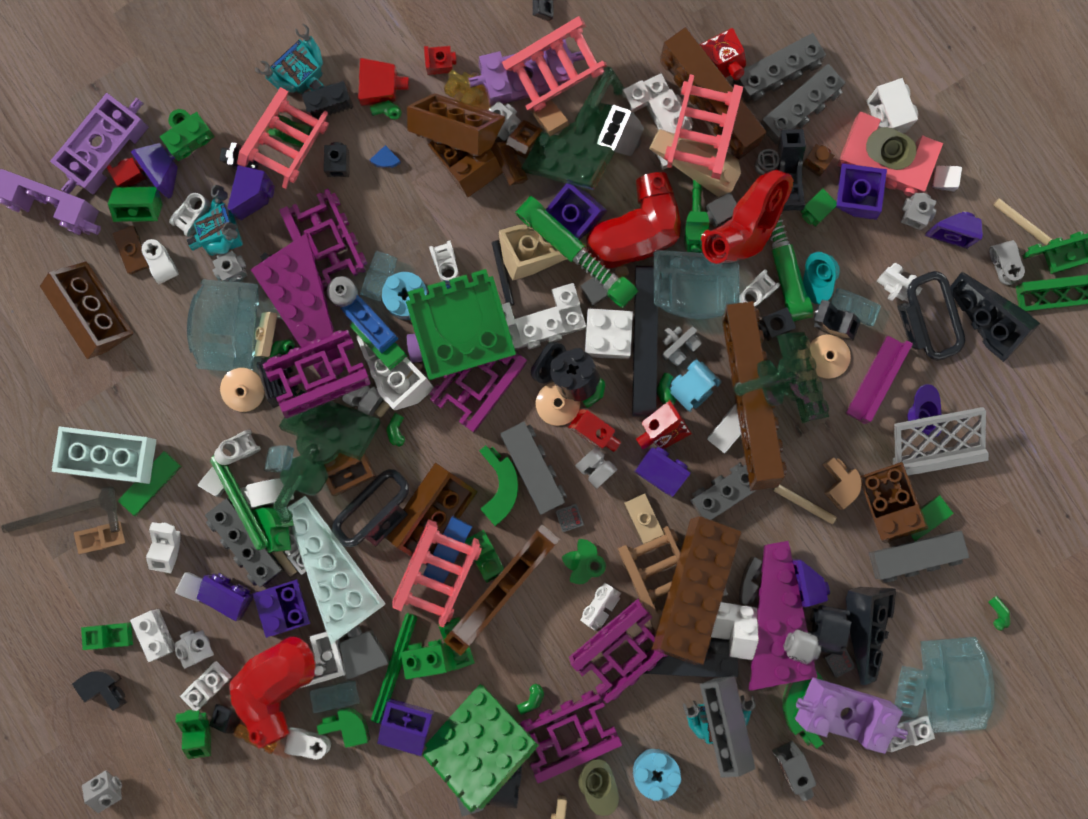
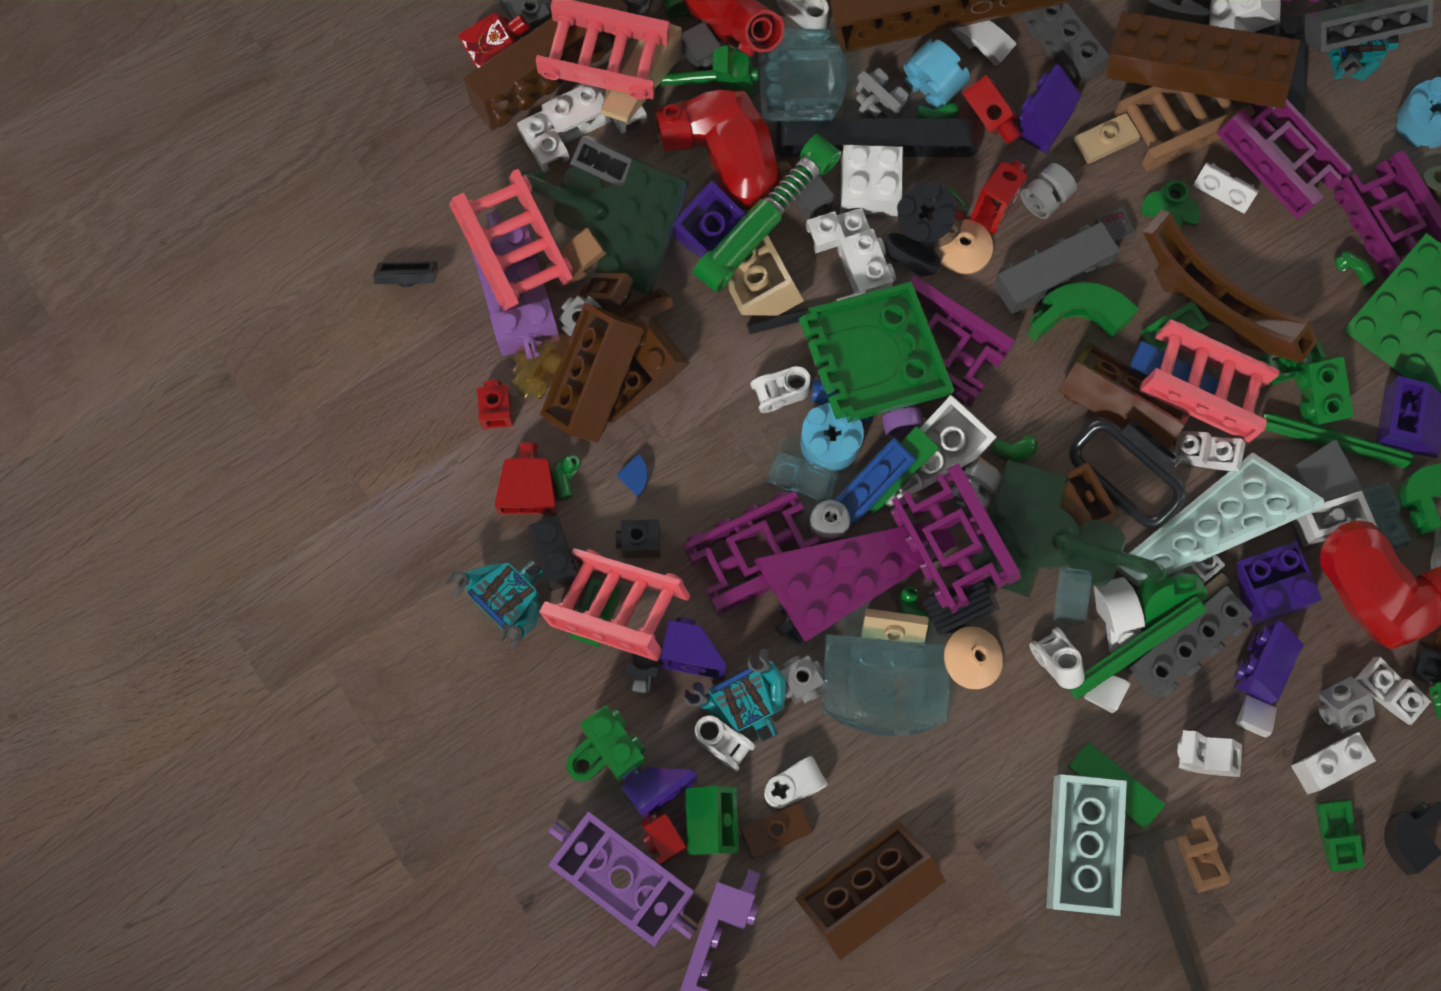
camera: 90 degrees left, 10 degrees down
(388, 572) = (1210, 452): none -> white slope

